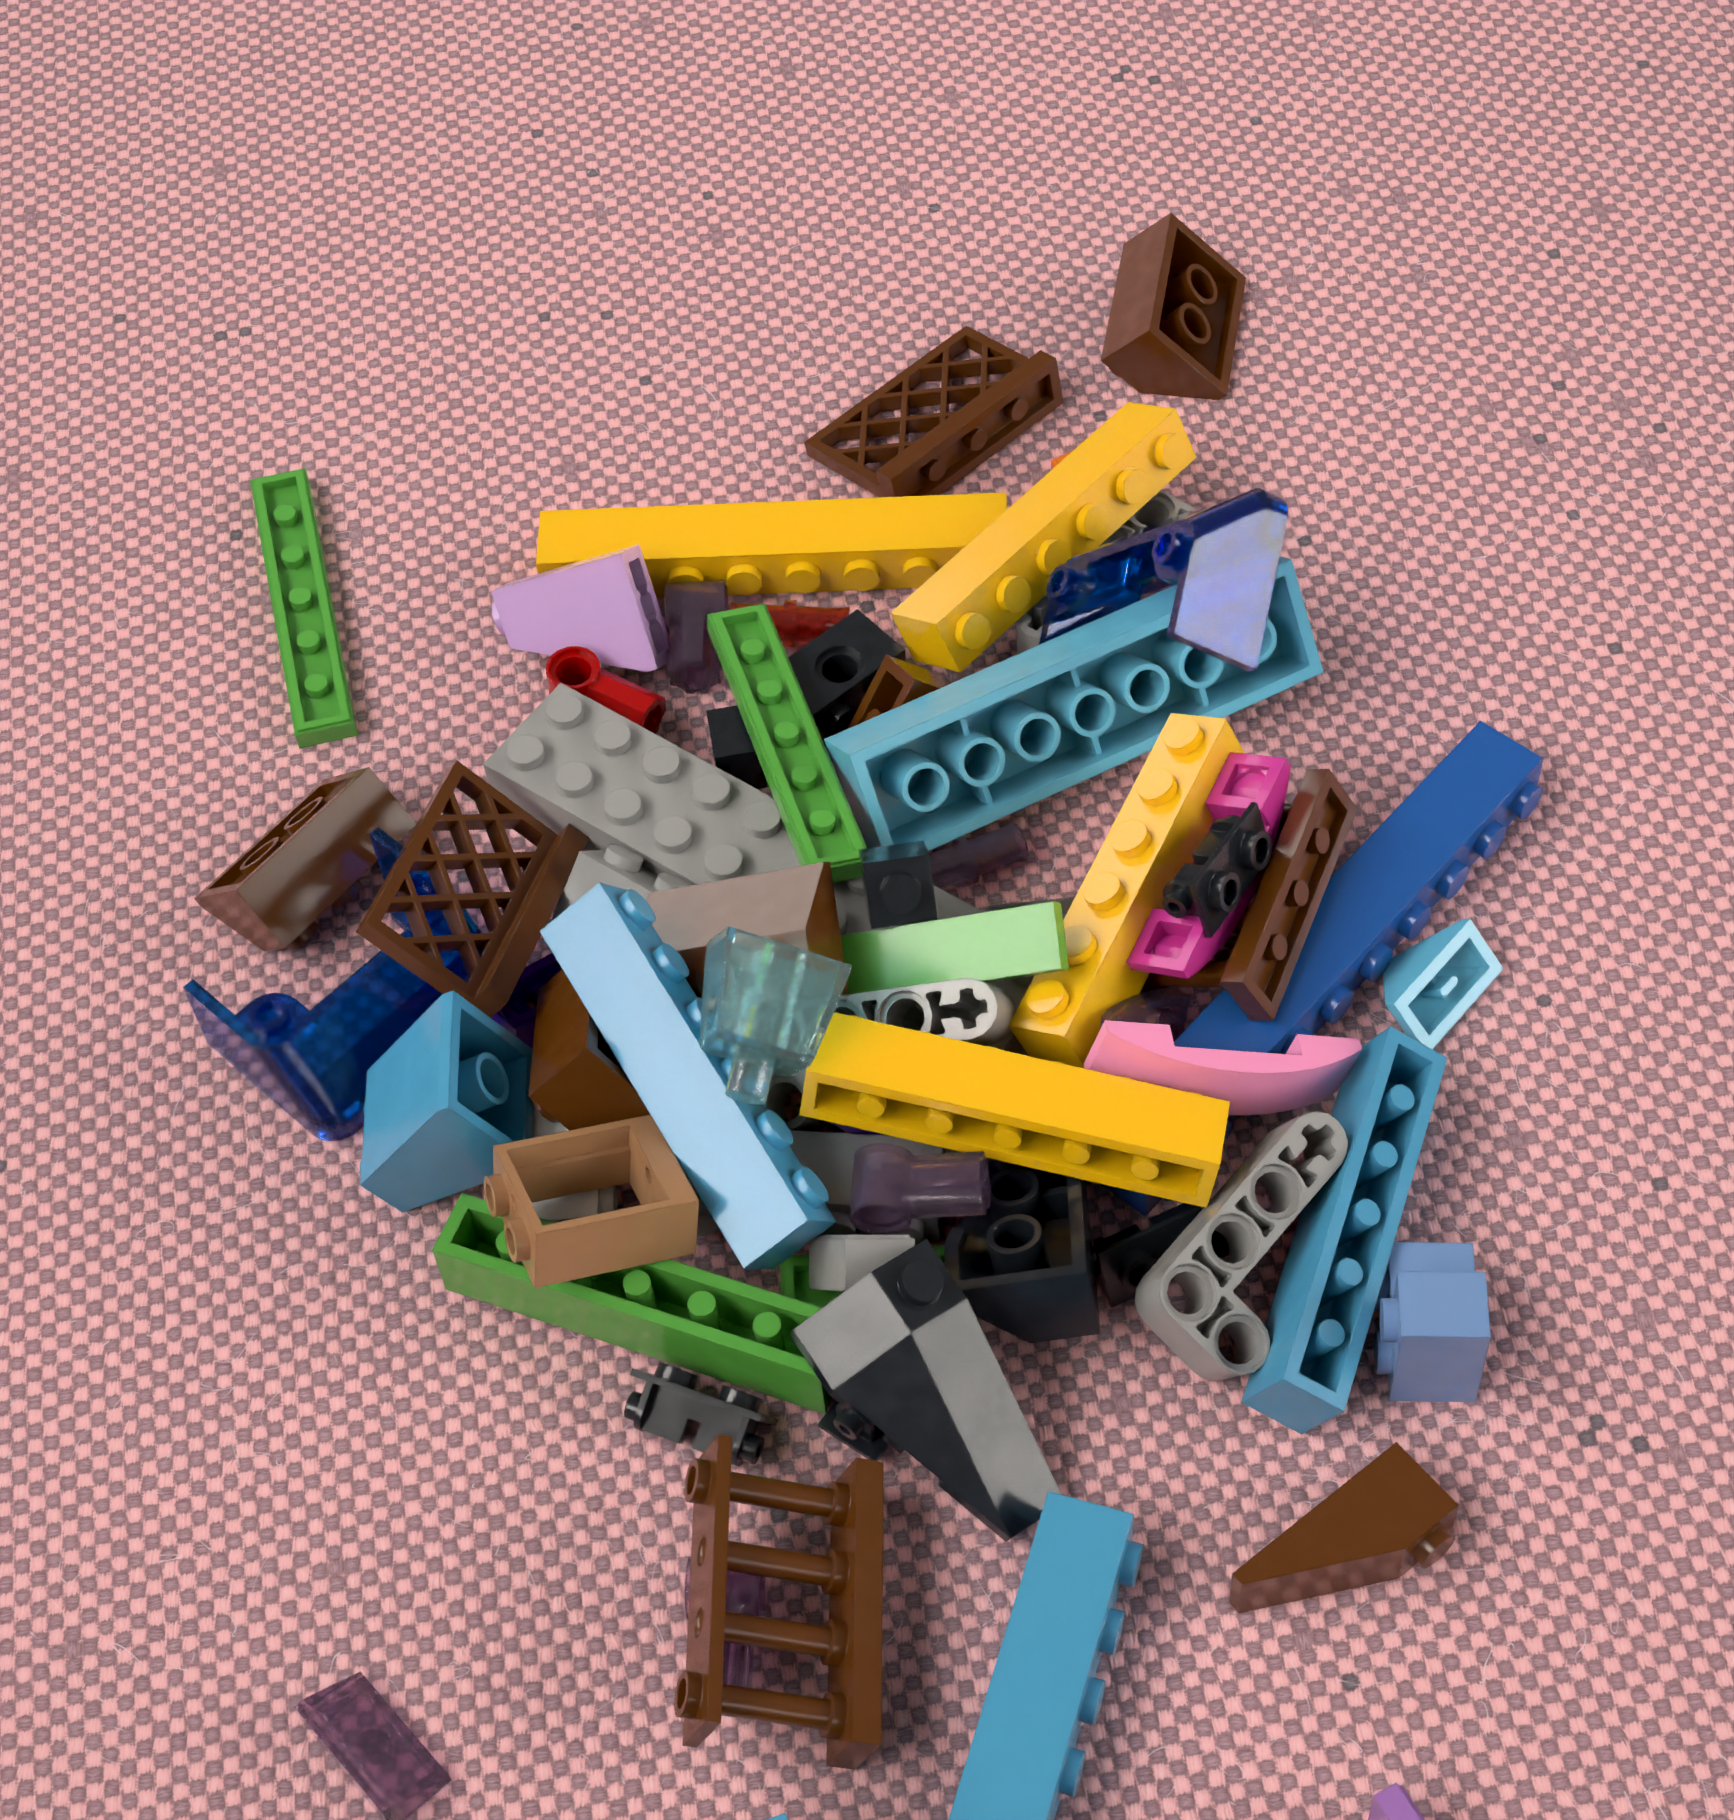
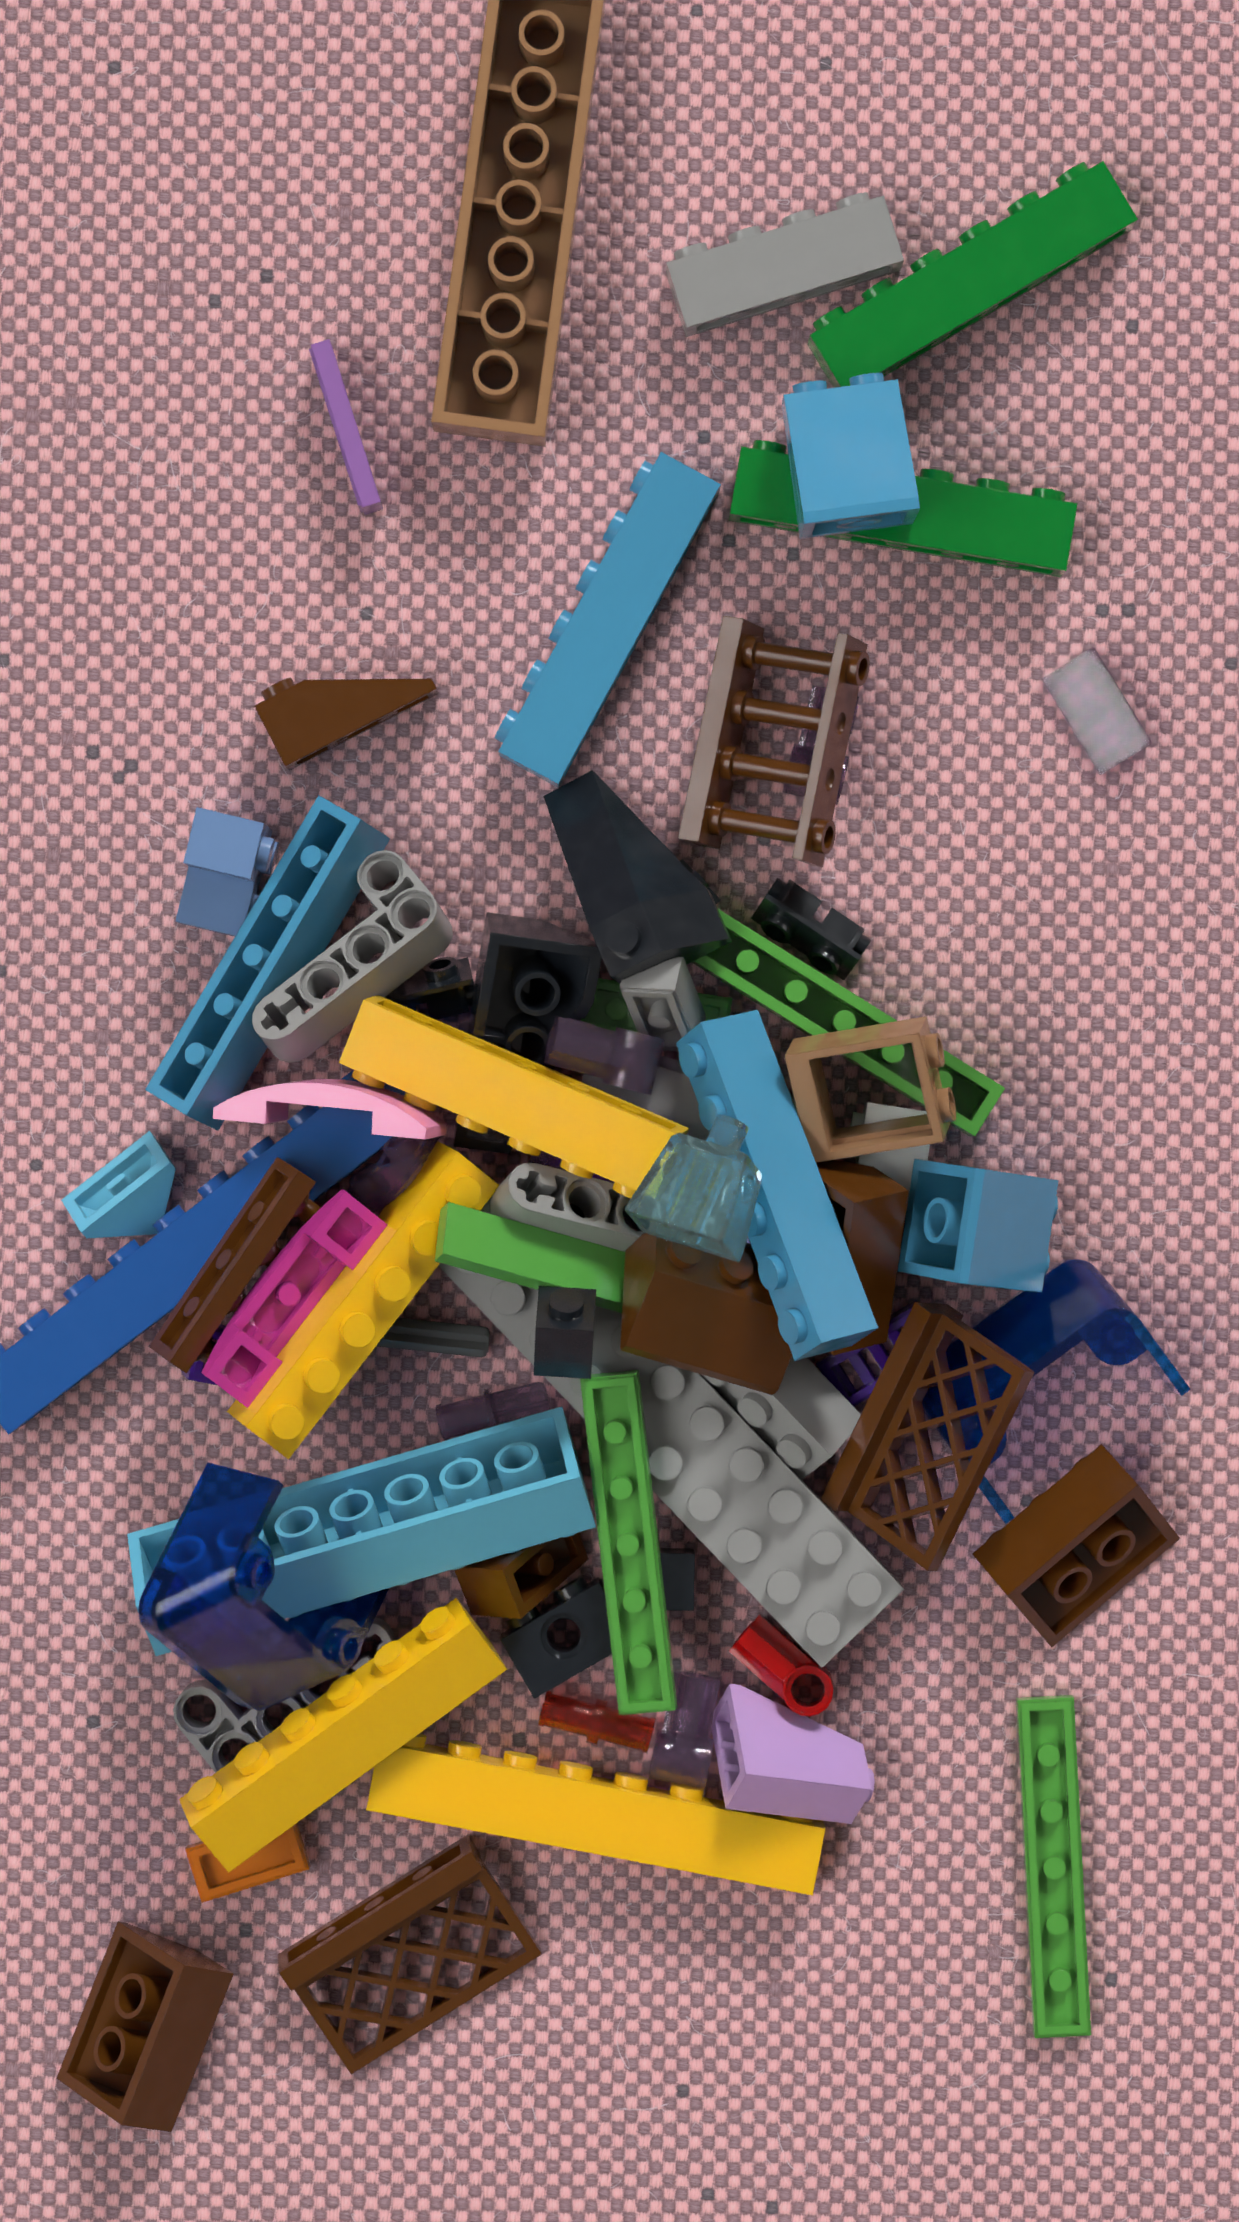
camera: 170 degrees left, 35 degrees up
(1221, 870) = (303, 1259): black hinge -> none

